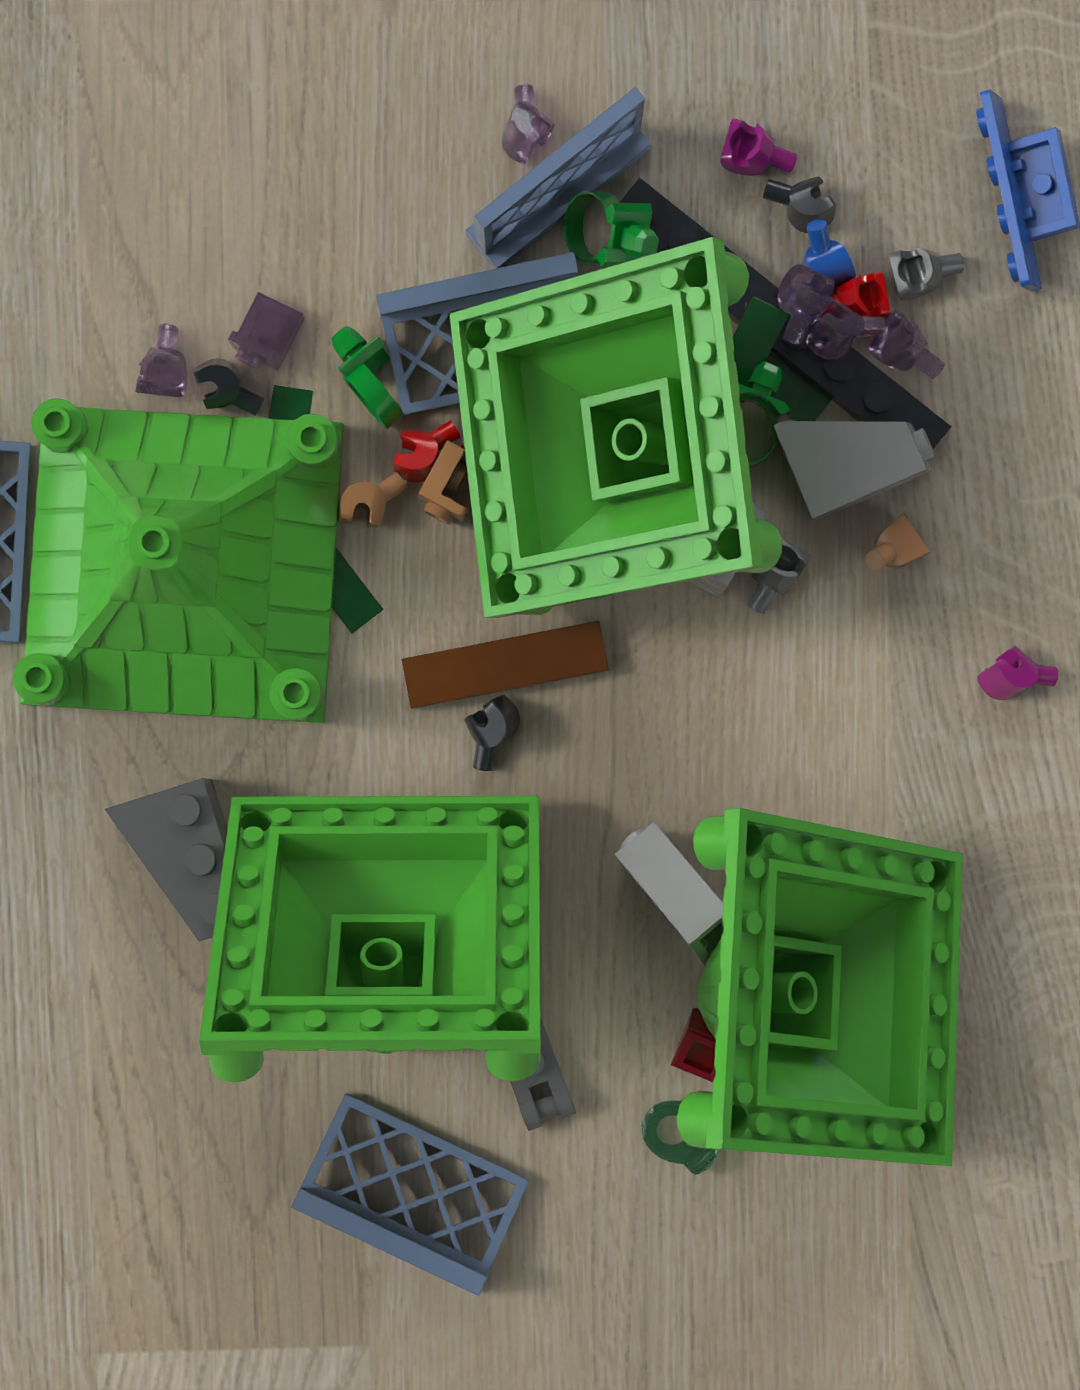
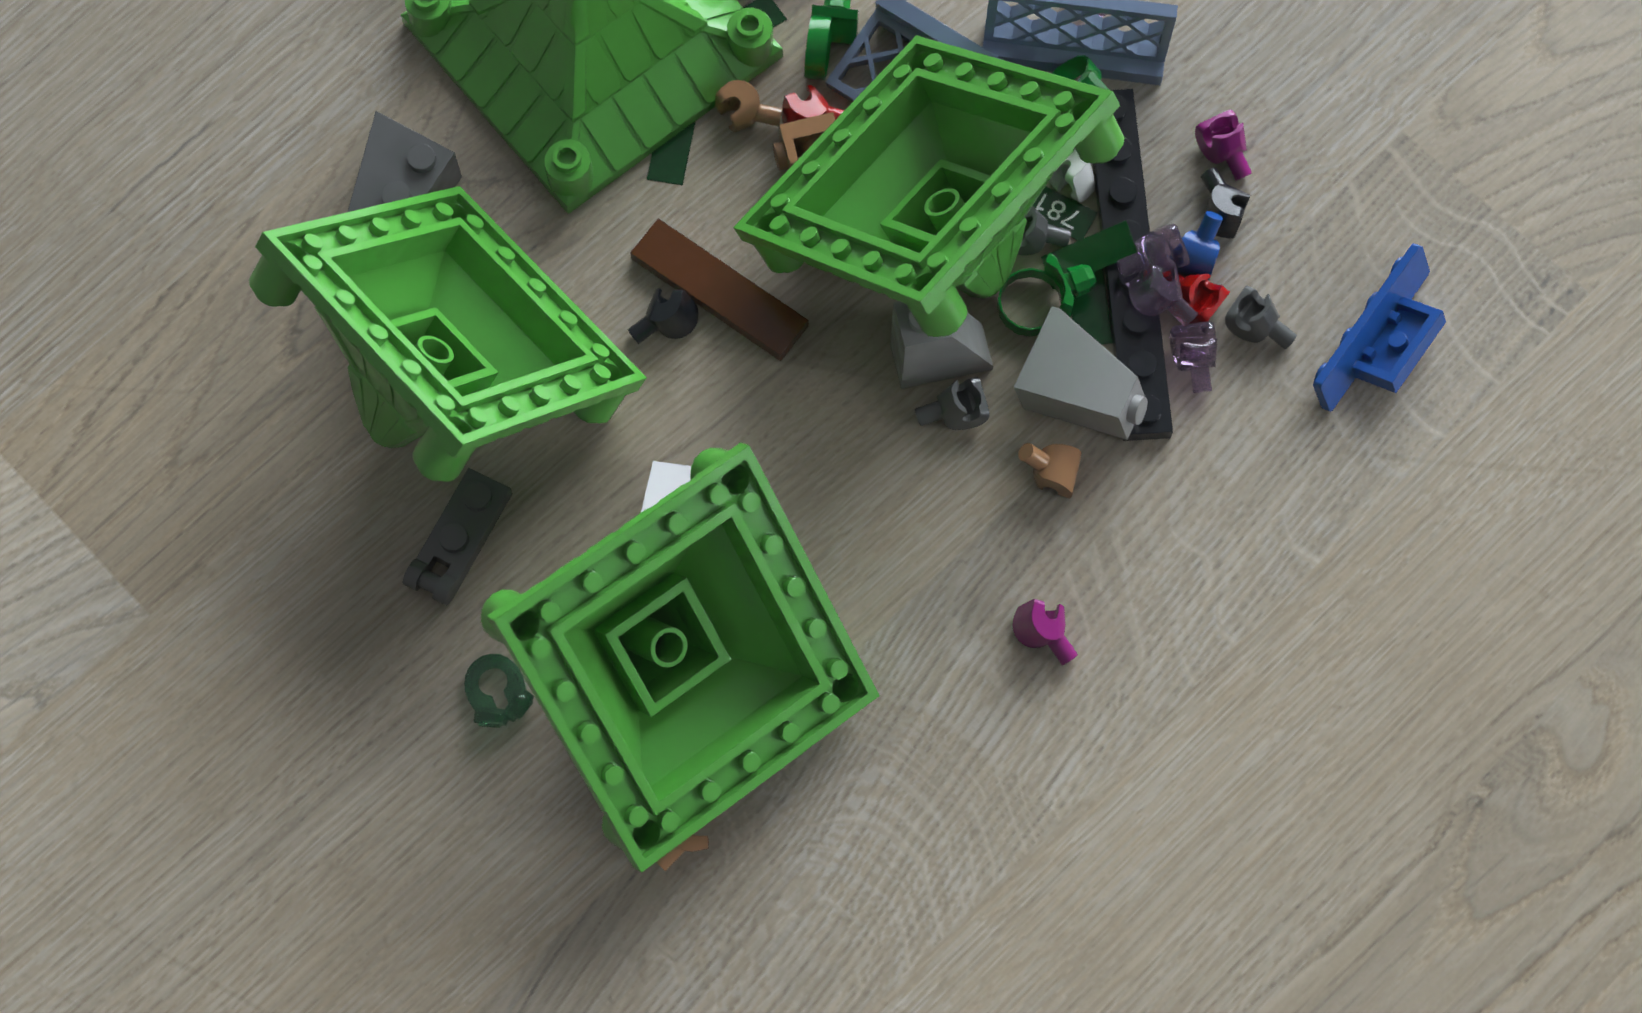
camera: 50 degrees right, 15 degrees down
(393, 1236) = (243, 554): sand blue fence -> none

